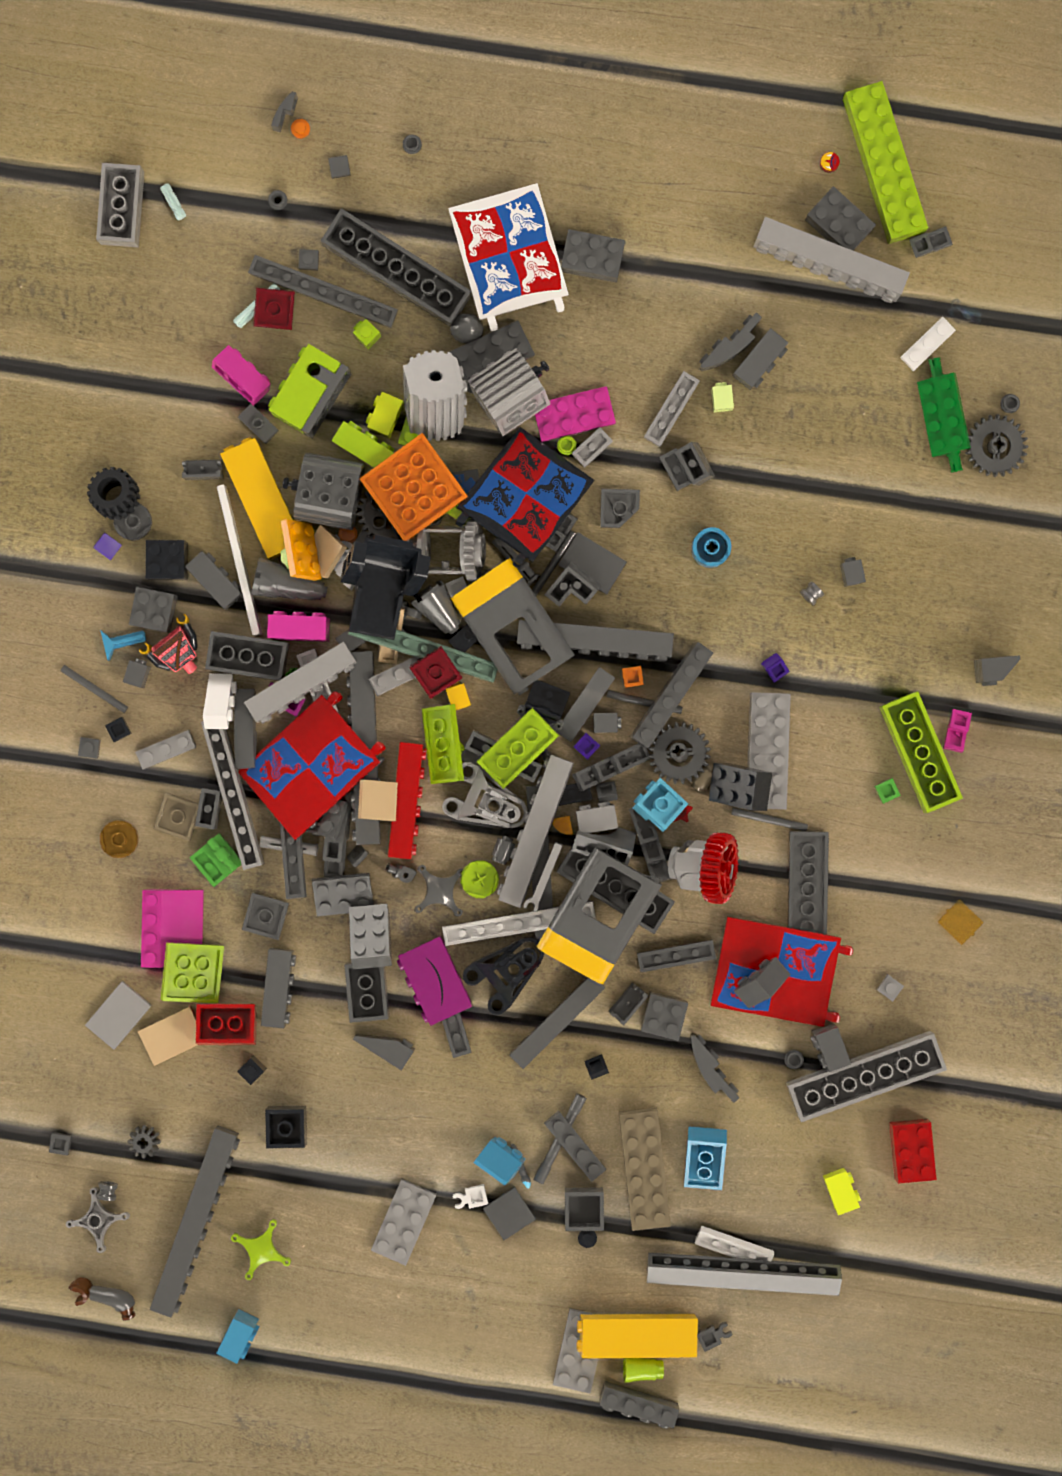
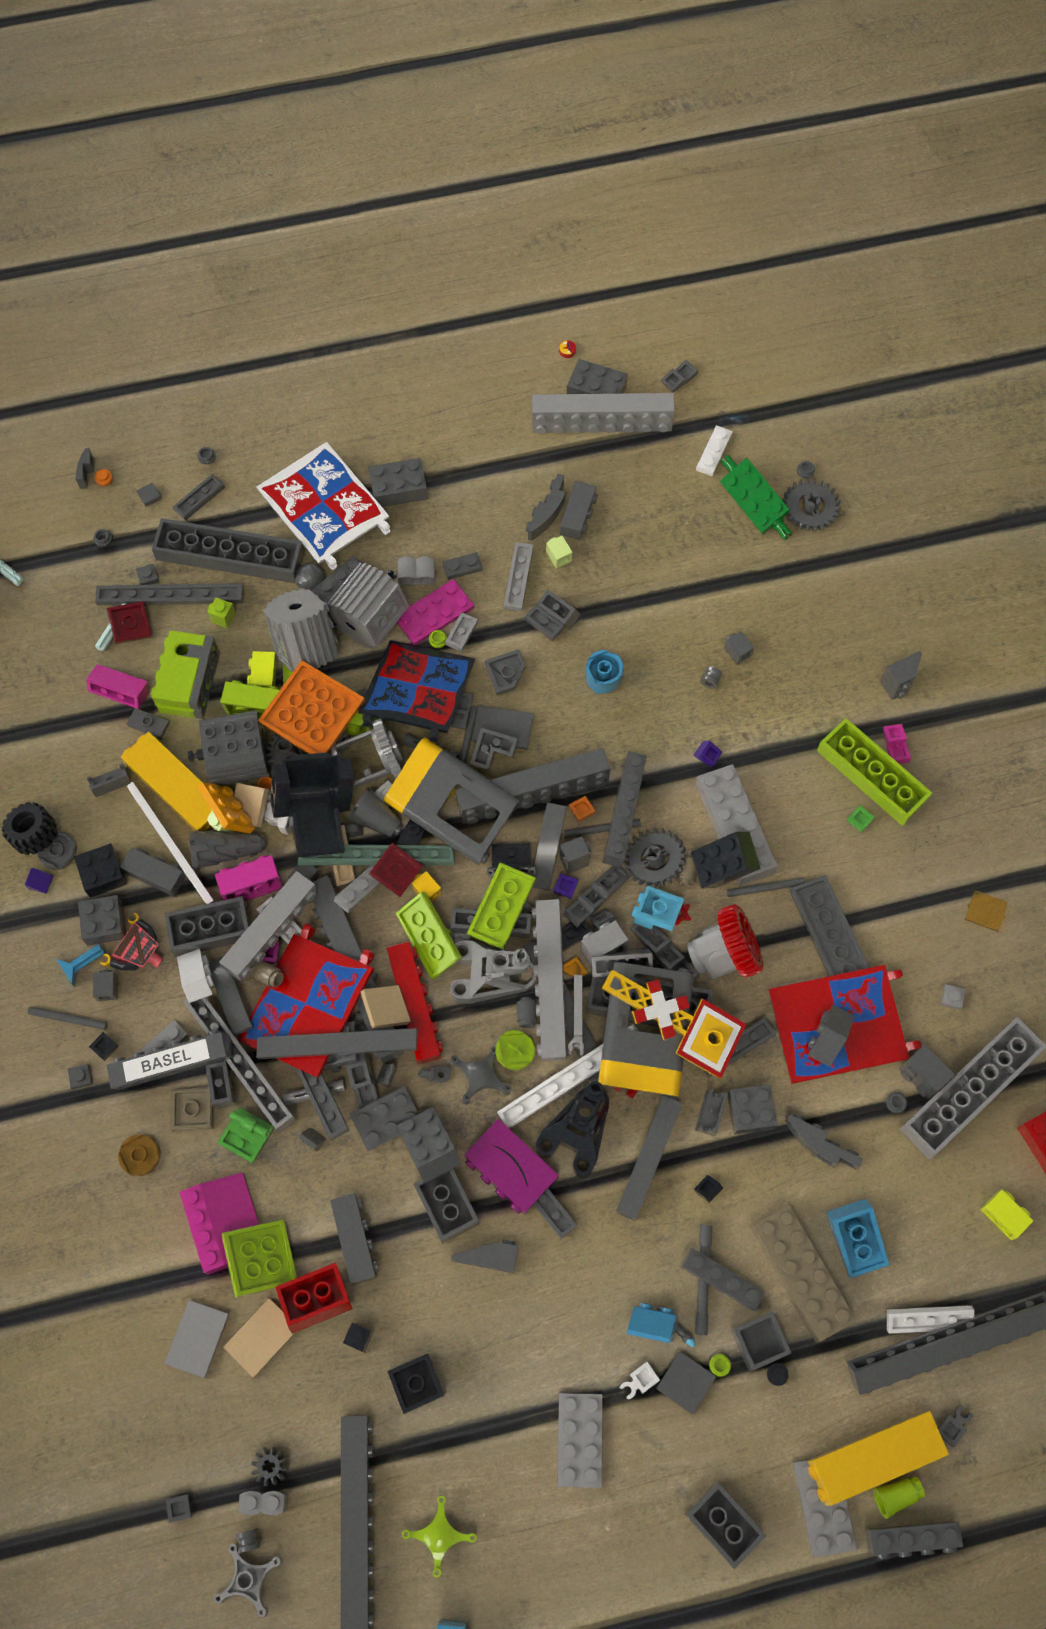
camera: 20 degrees left, 20 degrees down
(133, 1169) = (259, 1502): none -> light grey brick
(171, 772) = (170, 1060): none -> dark grey brick
(265, 916) = (315, 1172): dark grey plate -> none
(273, 886) = (312, 1139): none -> dark grey slope
(285, 726) = (268, 974): none -> dark tan brick
(322, 819) = (337, 1043): none -> dark grey tile
(388, 189) = (198, 497): none -> dark grey tile
(492, 1334) = (725, 1525): none -> dark grey brick
(543, 1211) = (720, 1365): none -> lime plate
(573, 363) = (416, 571): none -> light grey brick
(621, 373) = (462, 566): none -> dark grey plate
(652, 932) = (695, 1042): none -> piece
(885, 162) = (613, 332): lime brick -> none

